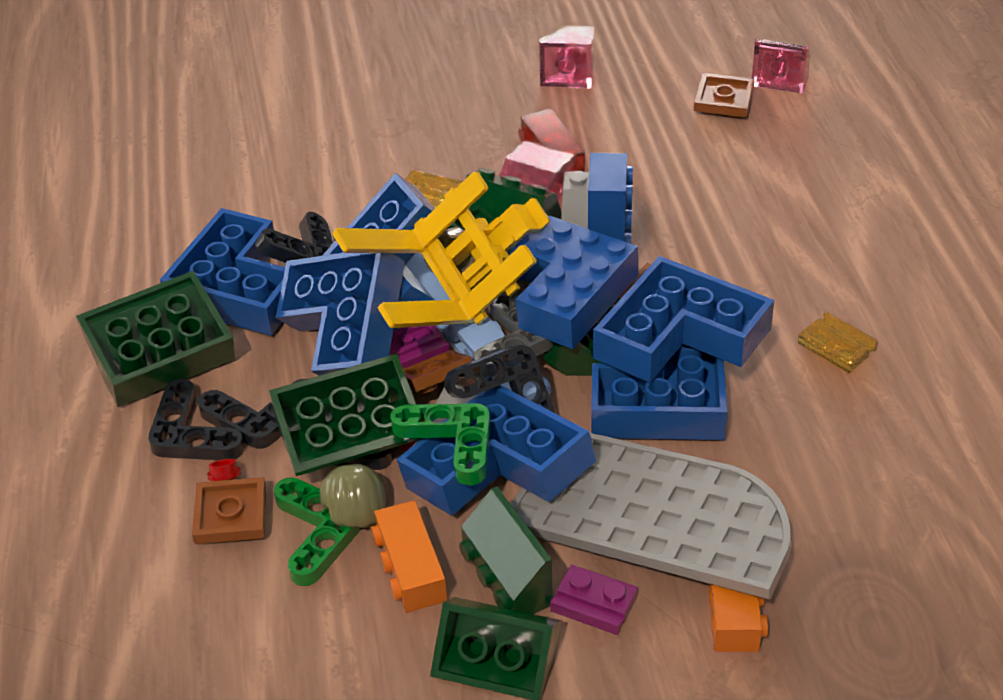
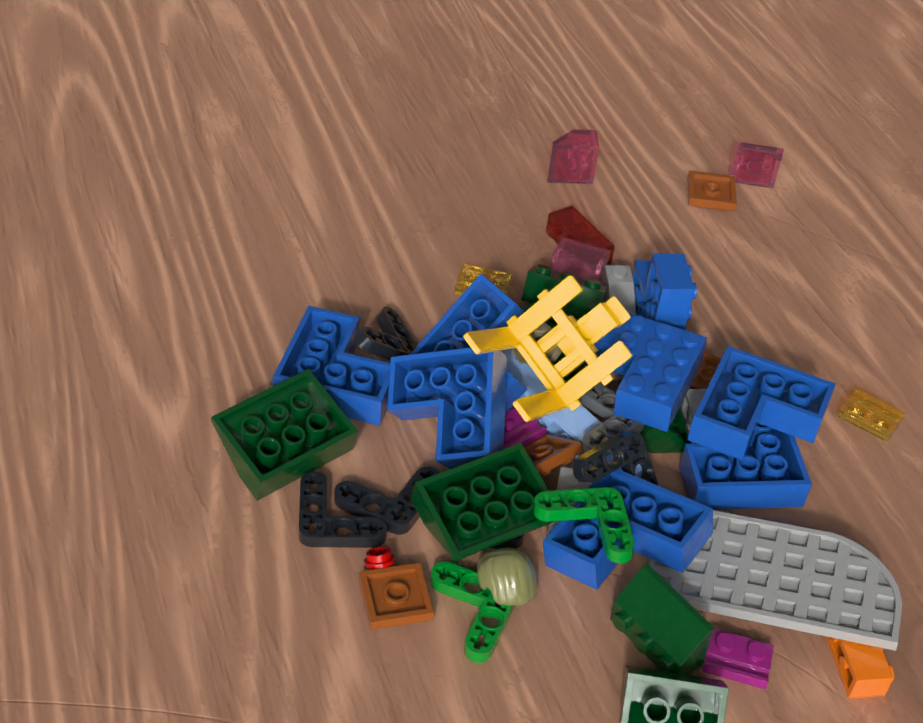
camera: 15 degrees left, 0 degrees up
(409, 557) = (572, 630): orange brick -> none

